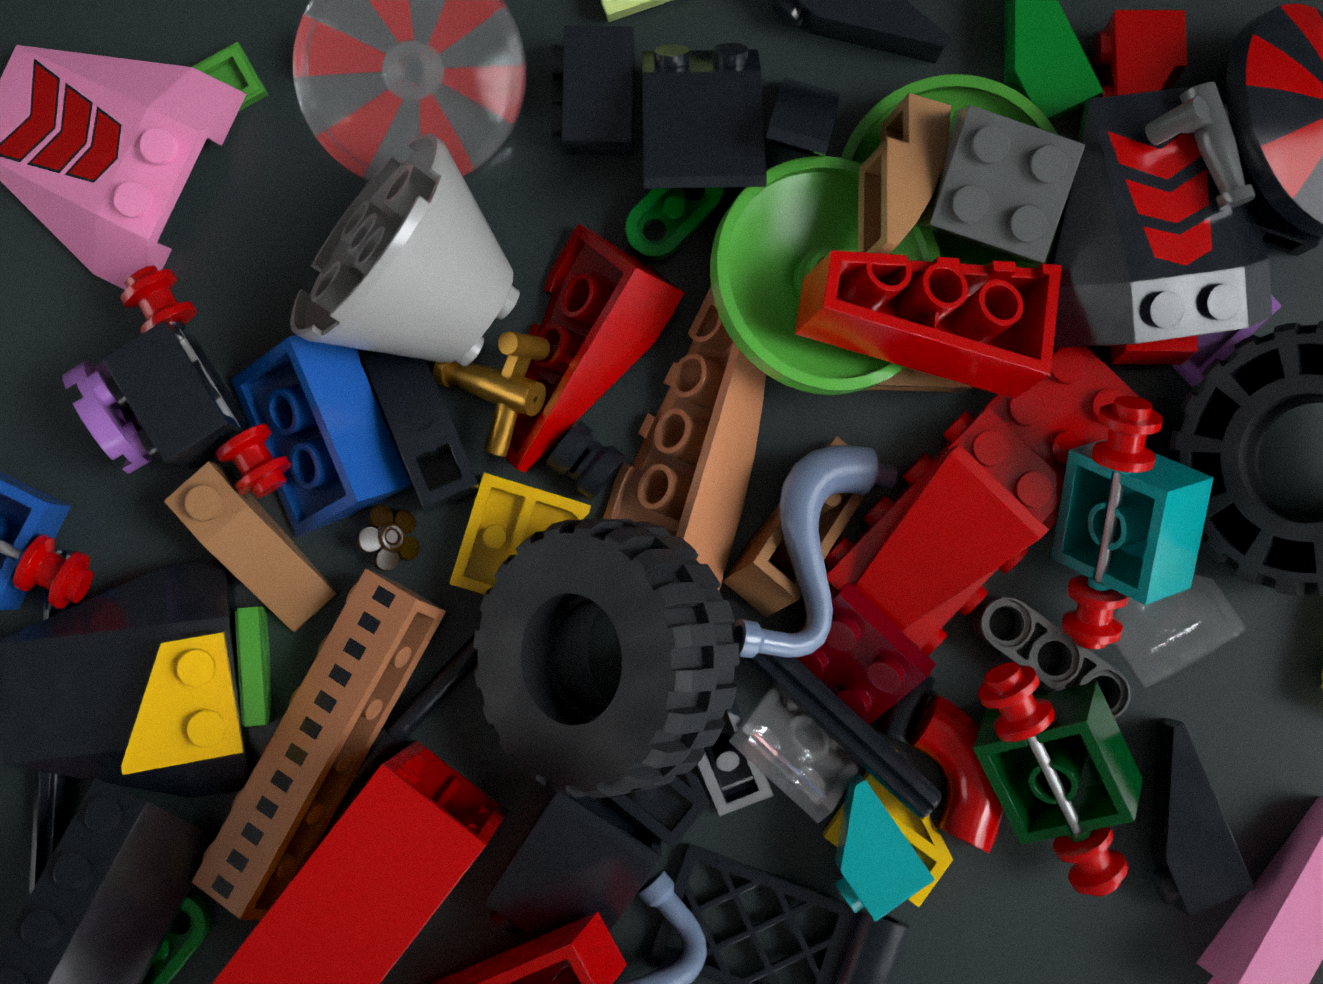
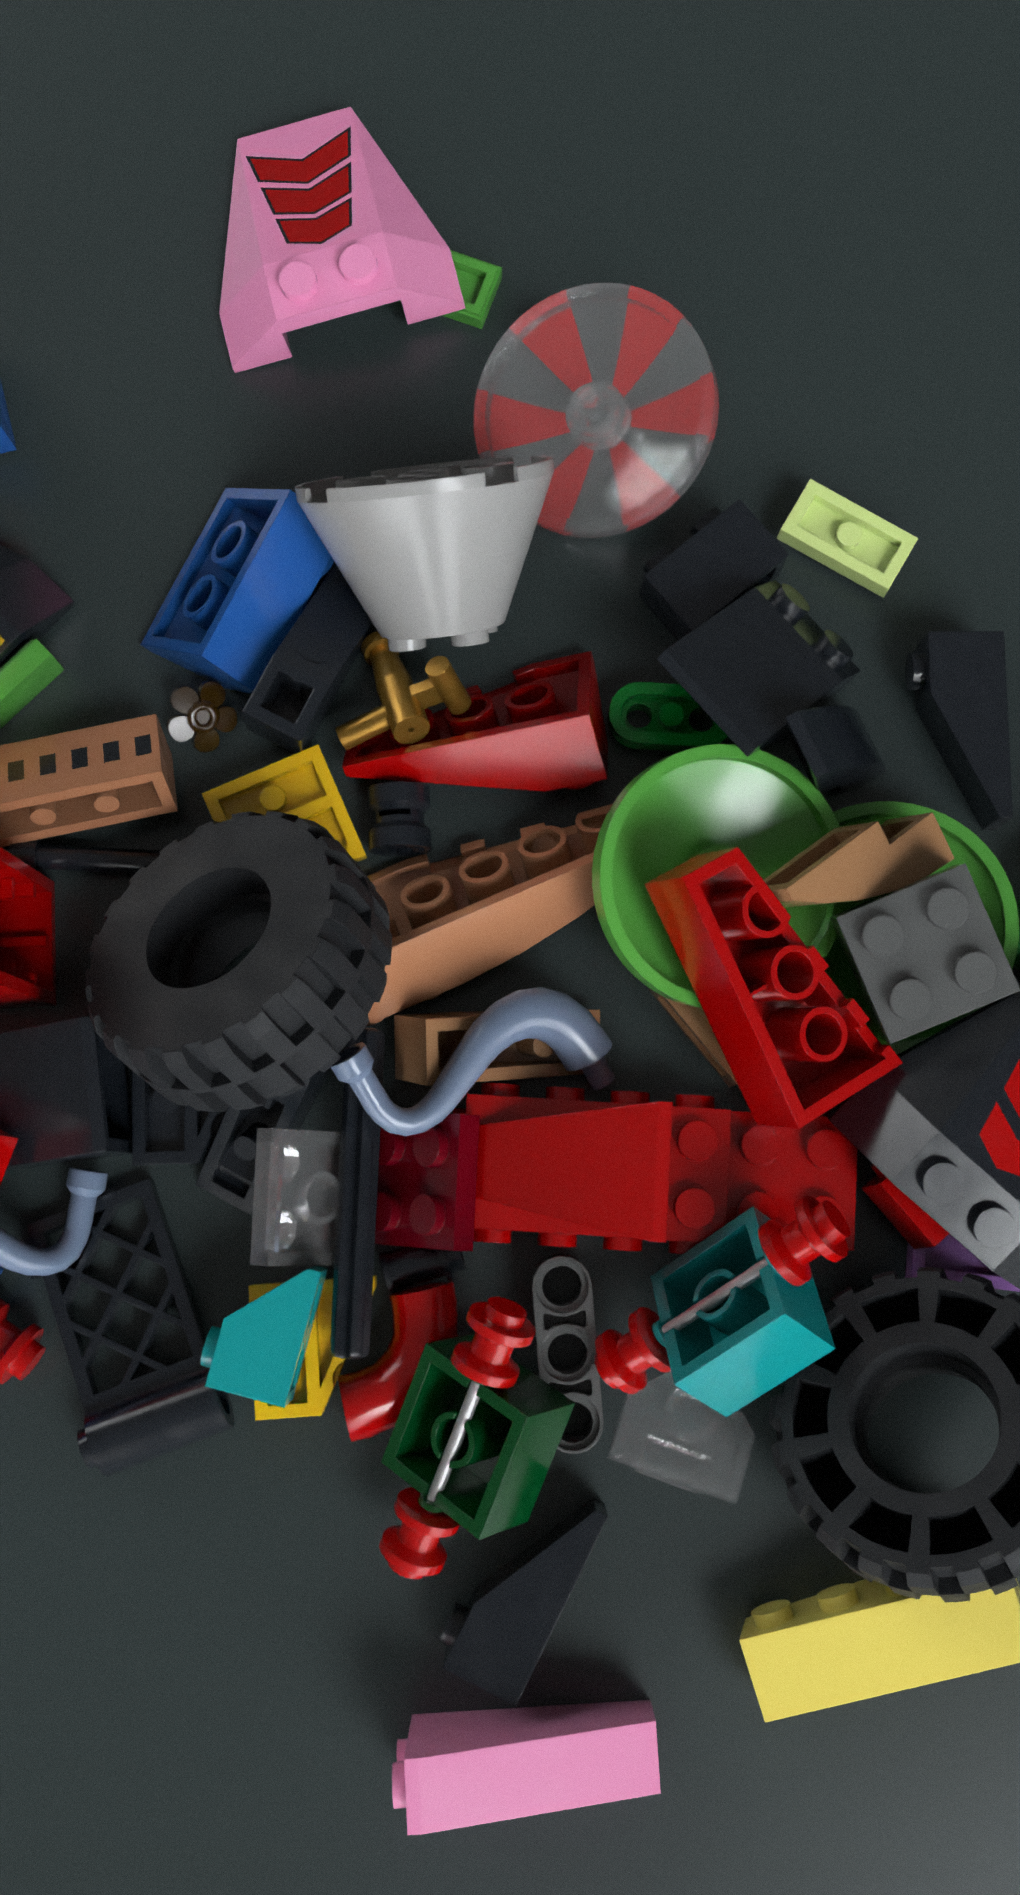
camera: 50 degrees right, 5 degrees down
(105, 418) = (109, 411): medium lavender plate -> none
(179, 394) = (176, 449): black brick -> none
(251, 545) = (101, 609): medium nougat slope -> none

